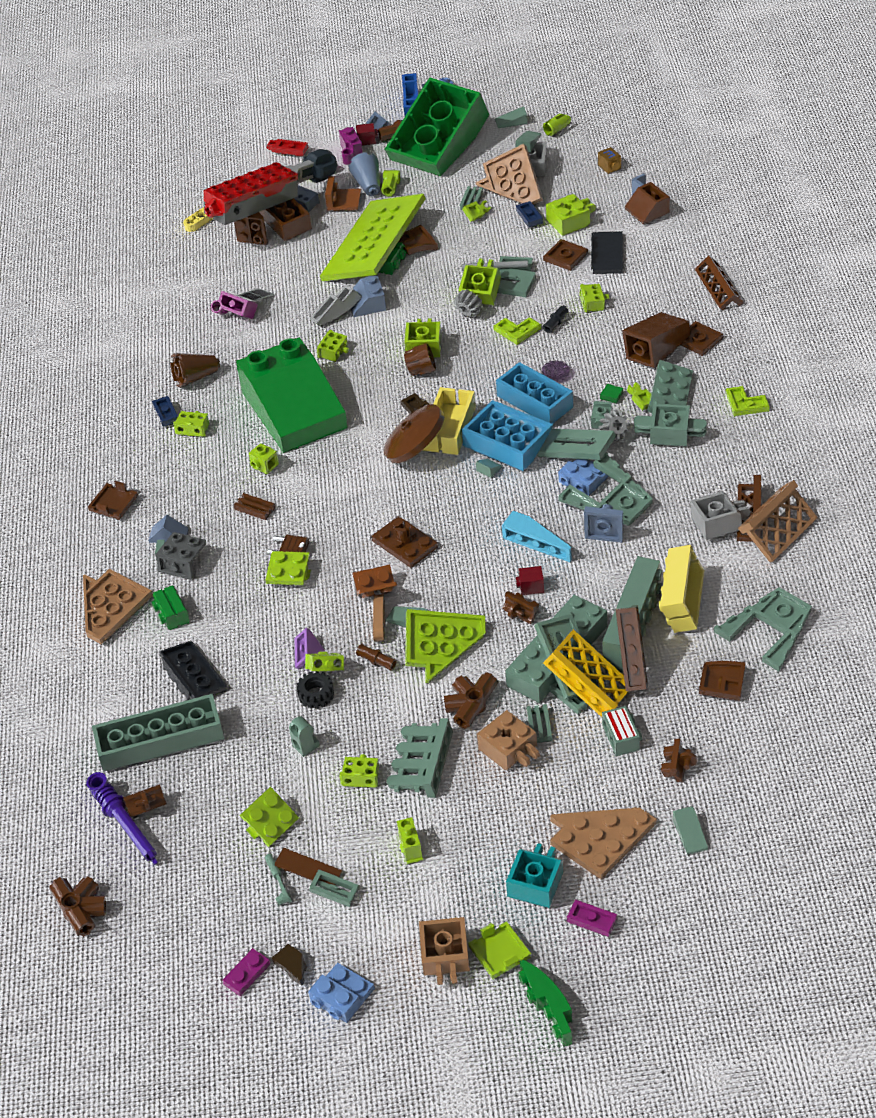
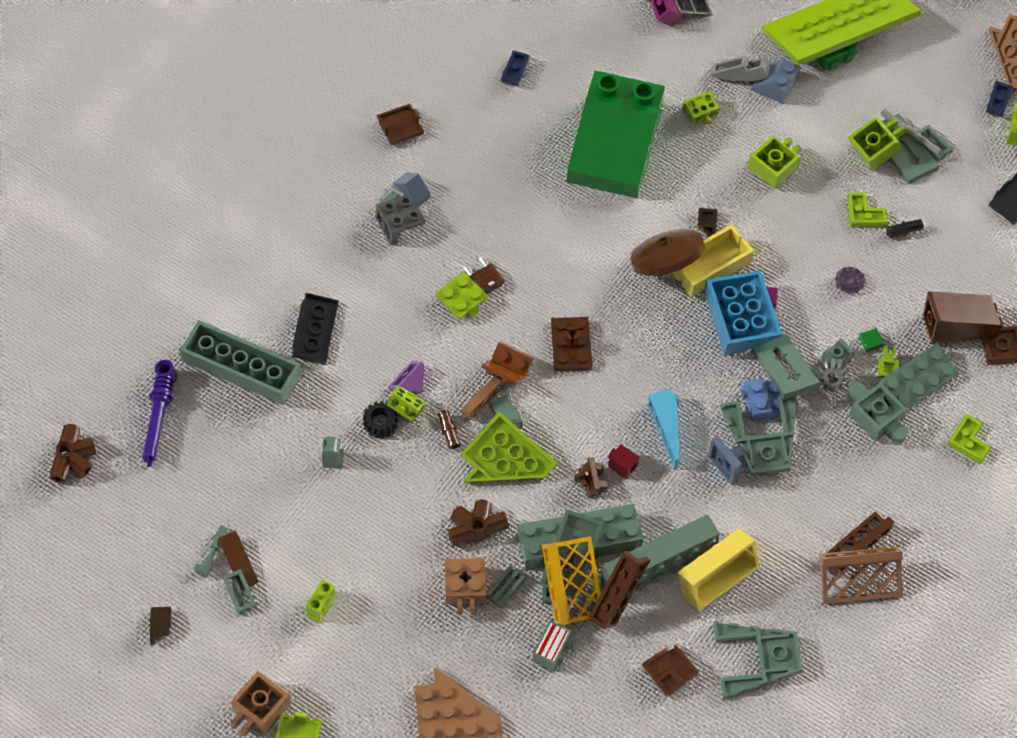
camera: 35 degrees right, 15 degrees up
(110, 603) = (313, 218): medium nougat wing -> none
(145, 800) = (182, 411): reddish brown hips -> none
(170, 608) = (349, 259): green brick -> none
(191, 423) = (523, 97): lime piece -> none
(192, 367) = (573, 42): reddish brown cone -> none
(246, 972) = (127, 602): magenta plate -> none
(255, 503) = (490, 203): reddish brown tile -> none
(263, 458) = (540, 177): lime brick -> none
(268, 817) = (249, 497): lime piece -> none
(340, 992) = (168, 673): medium blue plate -> none
(360, 772) = (344, 515): lime piece -> none
(417, 240) = (876, 52): reddish brown plate -> none
(420, 360) = (750, 181): reddish brown piece -> none
(433, 760) = (403, 550): sand green fence -> none
(468, 303) = (846, 155): light grey gear -> none
(471, 192) = (960, 42): sand green tile -> none
(475, 211) = (956, 58): lime plate -> none
(487, 467) = (702, 328): sand green slope -> none
(534, 393) = (805, 290): dark azure brick -> none
(535, 876) = (378, 696): teal hinge -> none
(565, 254) = (985, 167): reddish brown tile -> none
(592, 297) = (957, 231): lime piece -> none
(680, 760) = (566, 707): reddish brown hips -> none
(717, 514) = (822, 527): light grey hinge -> none

